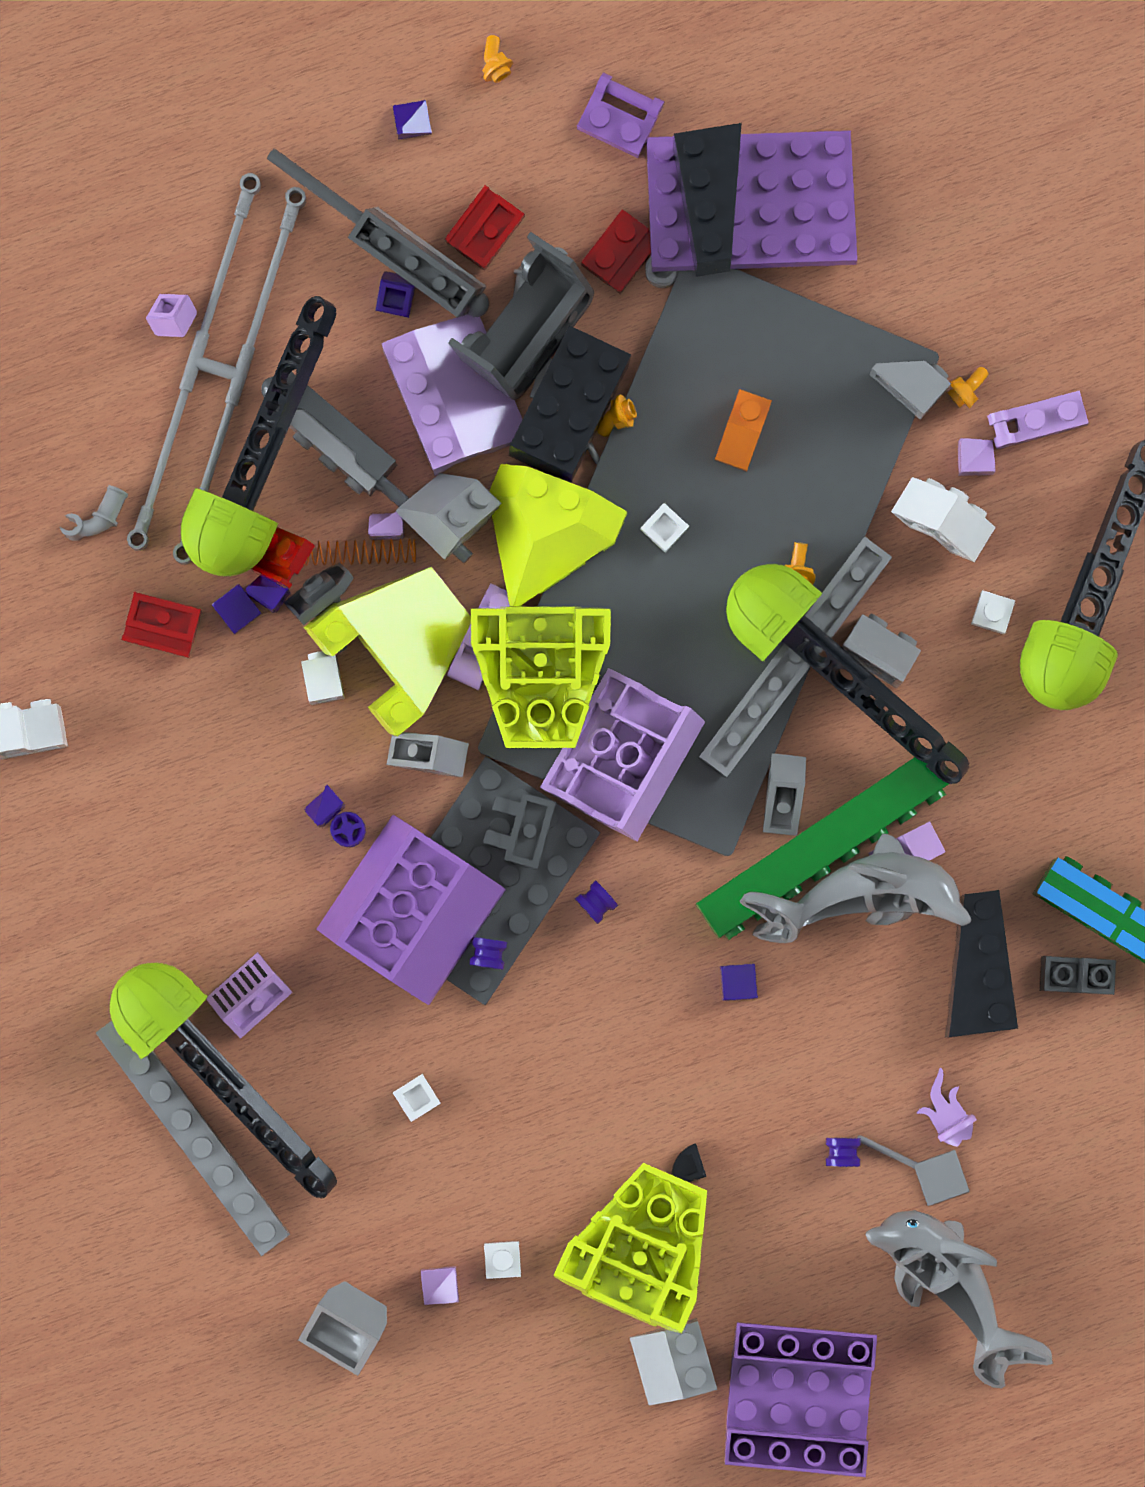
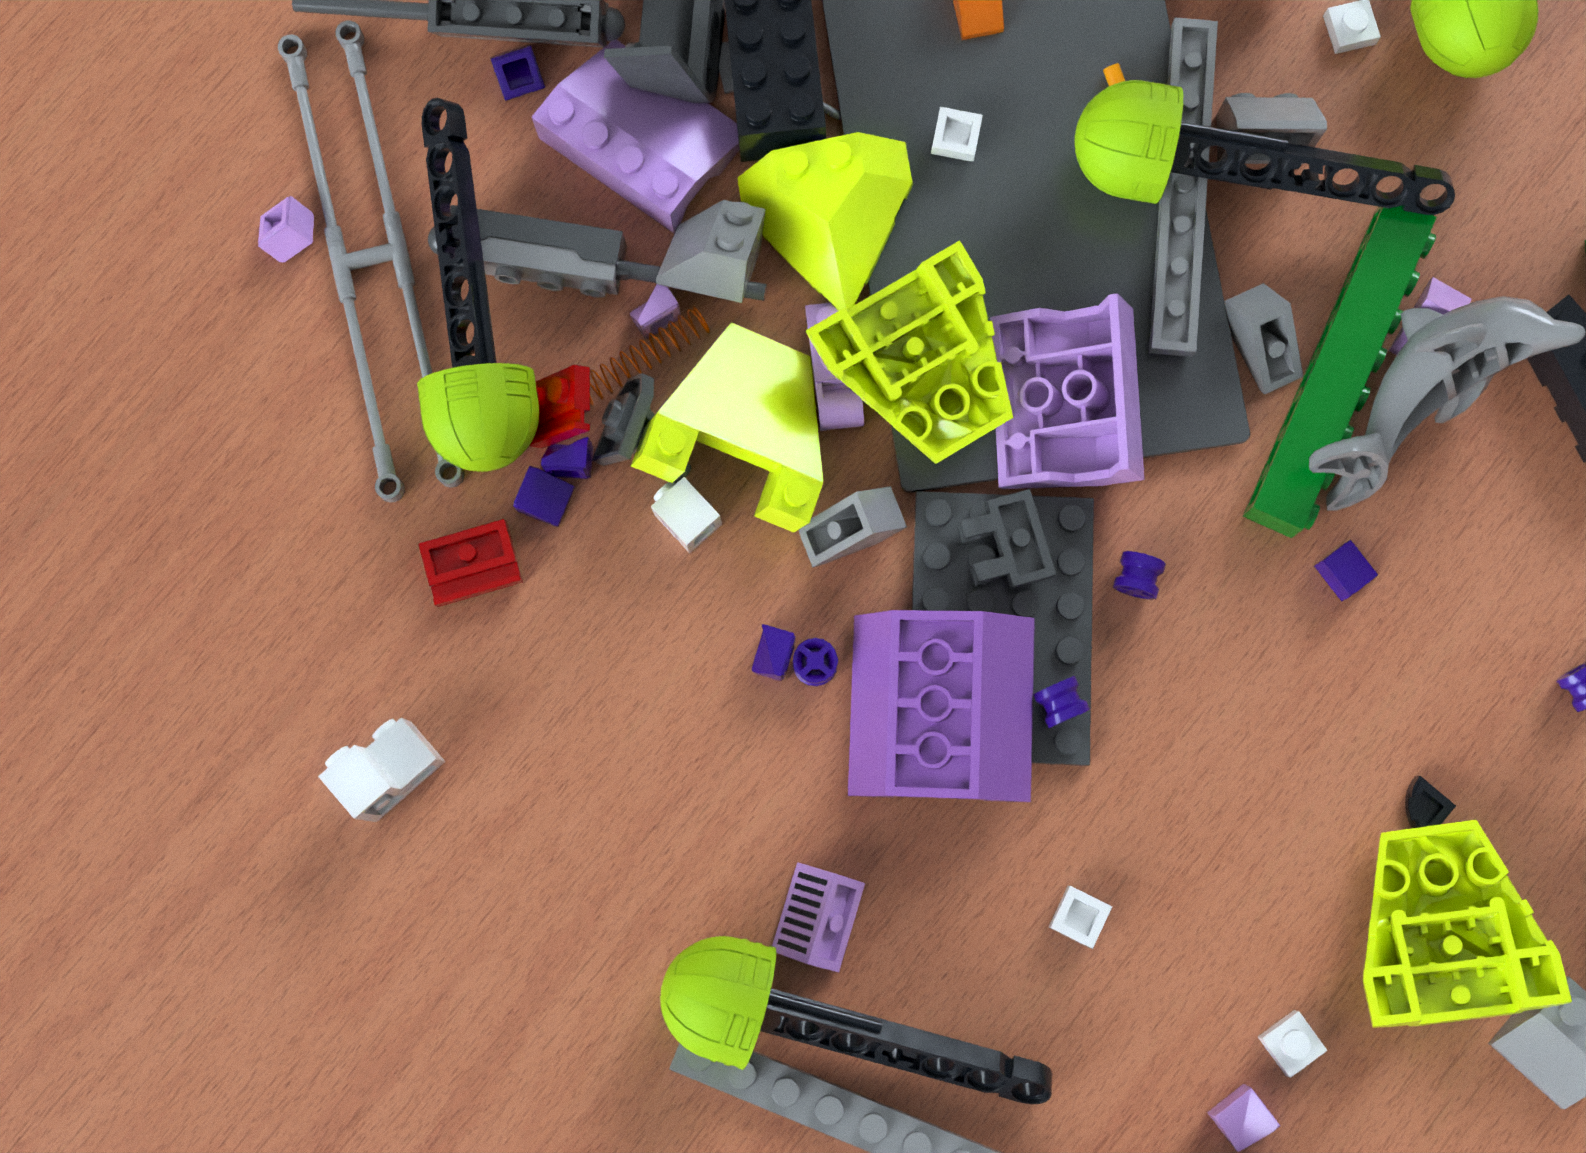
camera: 25 degrees left, 5 degrees down
(102, 519) = (335, 489): light grey piece -> none
(621, 415) = (833, 44): light orange plate -> none

